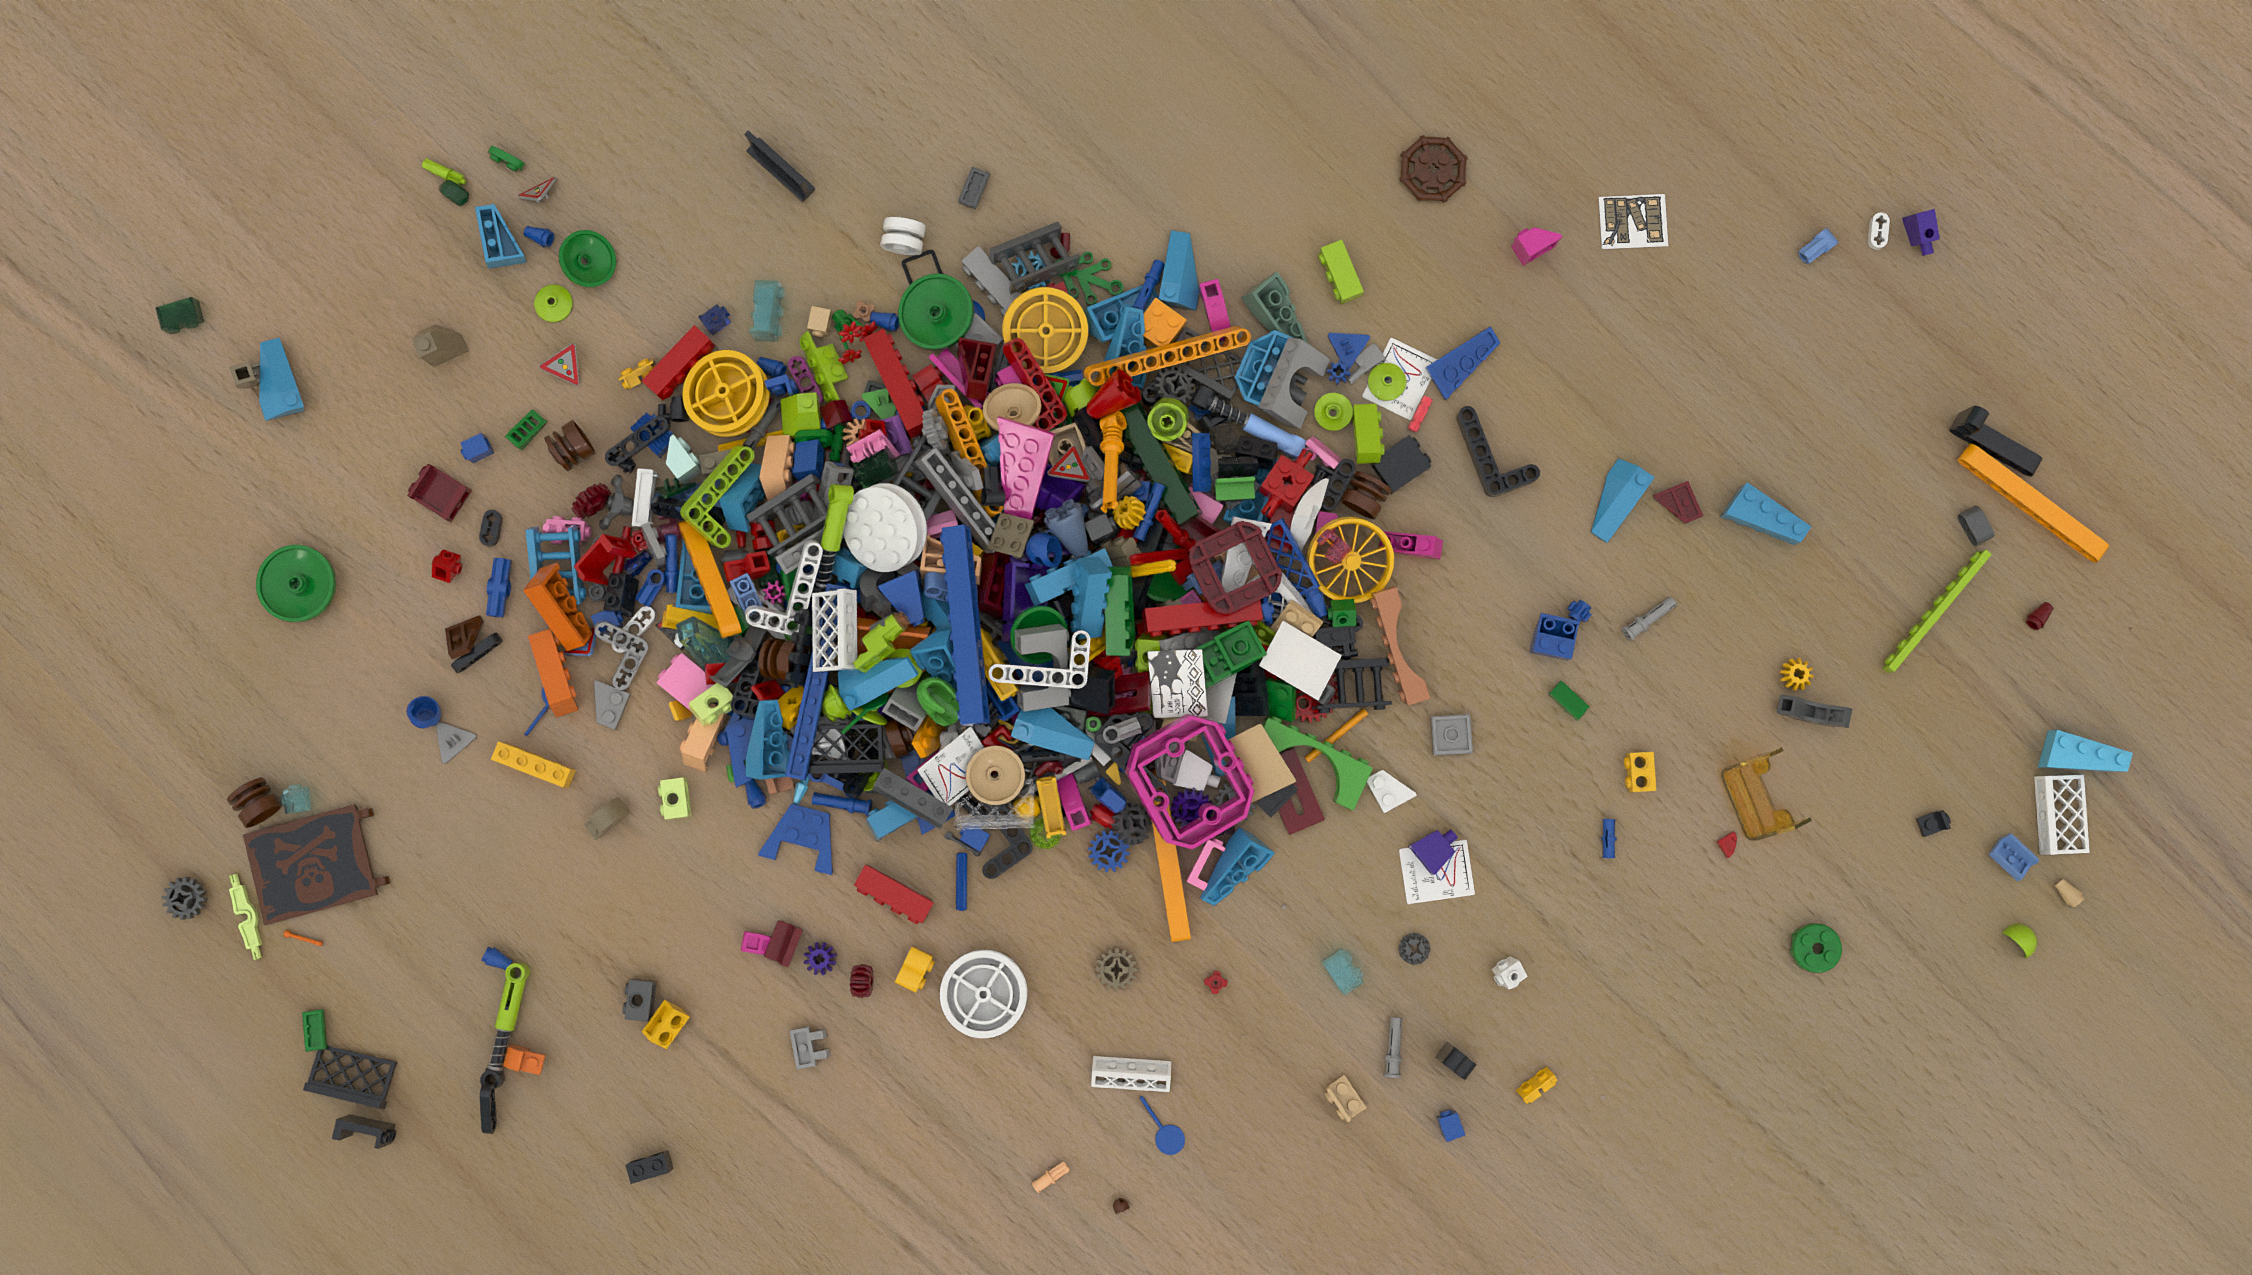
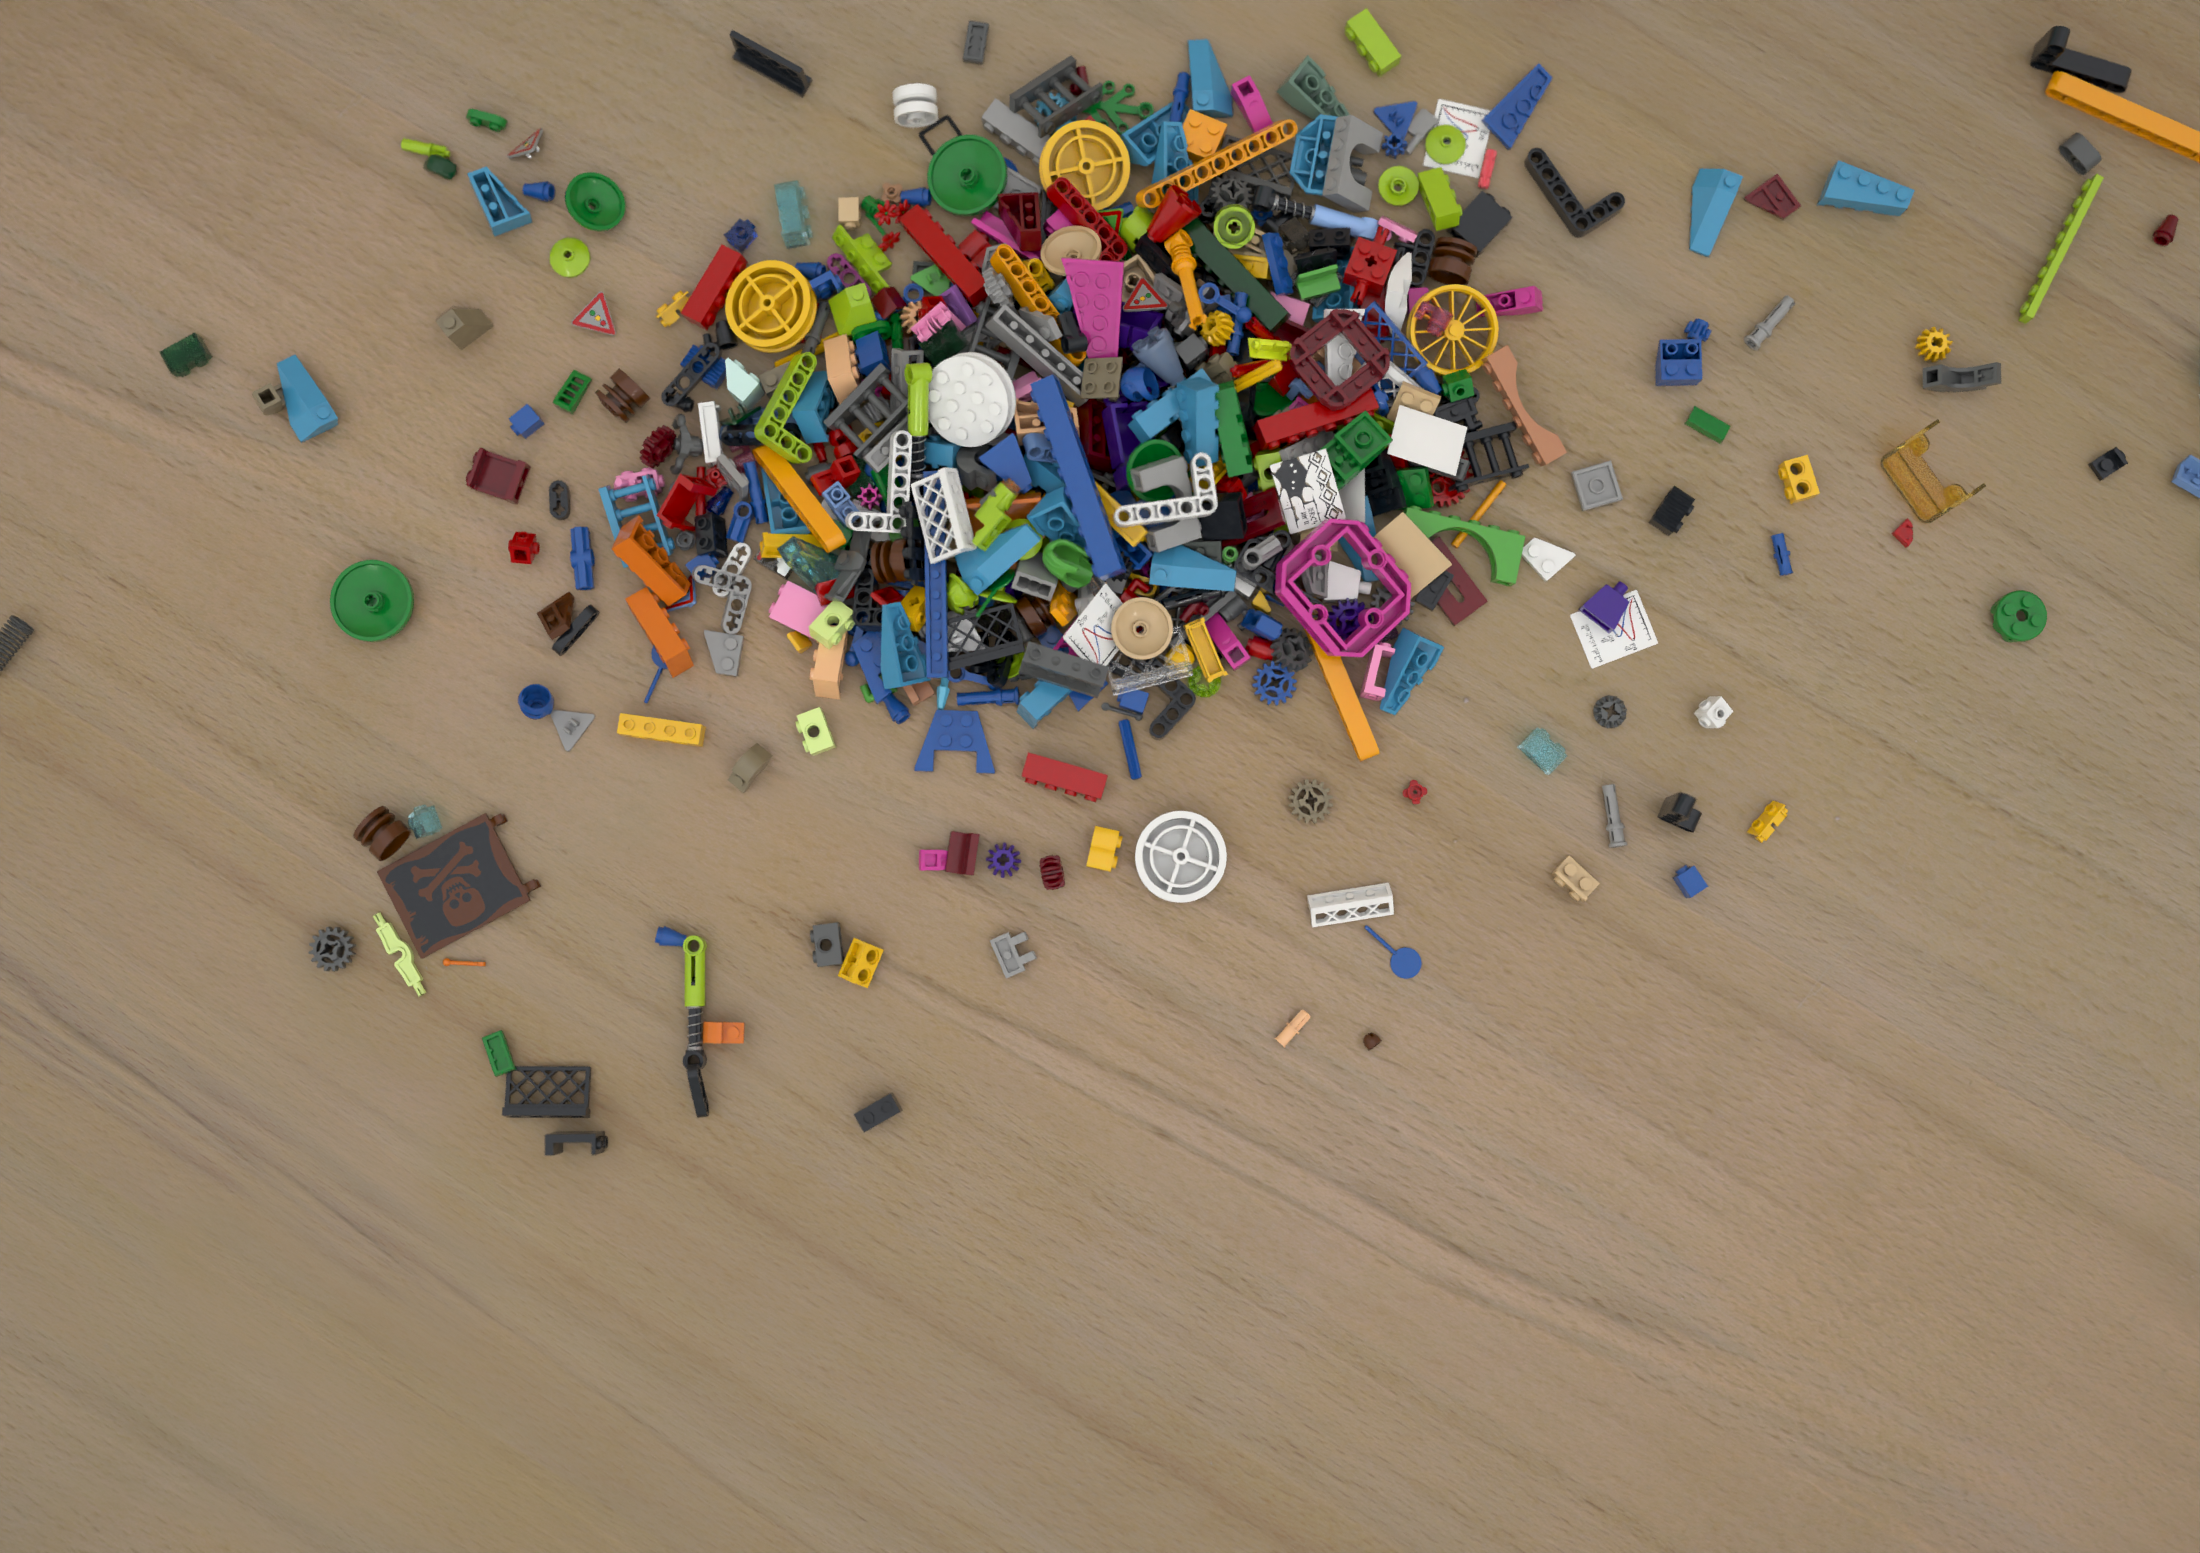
camera: 10 degrees left, 0 degrees up
(1154, 504) = (1242, 314): none -> blue piece
(1172, 542) = (1268, 349): none -> neon yellow hinge
(1516, 774) = (1672, 510): none -> black brick

